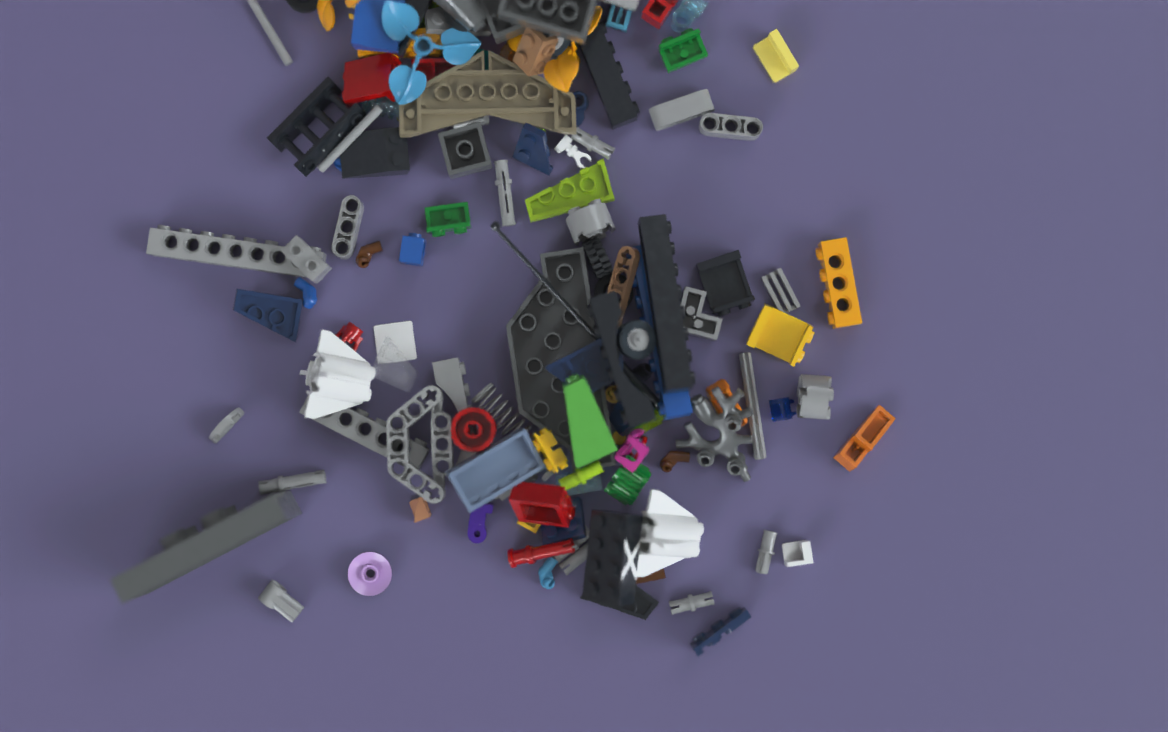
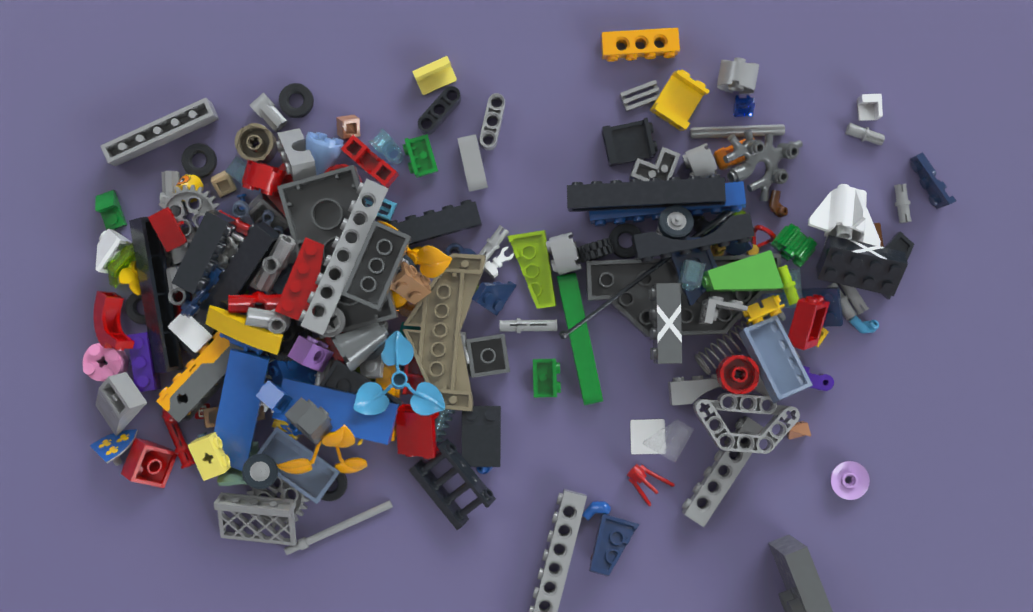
camera: 80 degrees left, 0 degrees up
(226, 424) = (705, 592): light grey tile -> none
(277, 598) = (862, 564): light grey piece -> none
(290, 482) = (762, 540): light grey pin -> none
(306, 259) = (571, 505): light grey brick -> none
(336, 377) = (678, 491): white brick -> none
(344, 217) = (550, 473): light grey beam -> none
(350, 138) = (466, 455): light grey bar -> none
(365, 253) = (567, 453): reddish brown arm -> none
(412, 249) = (569, 411): blue brick -> none
(495, 252) = (579, 339): none -> green beam
(520, 340) = (666, 323): none -> dark grey brick
(531, 554) = (847, 337): red pin -> none
(539, 387) = (709, 313): none -> light grey bracket
(578, 362) = (691, 274): none -> clear light blue brick
(625, 288) = (622, 237): medium nougat beam -> none
(632, 441) = (772, 228): dark pink piece -> none
(709, 365) = (700, 161): none -> light grey brick
(732, 55) = (441, 101): none -> black beam
(864, 438) = (776, 38): orange slope -> none

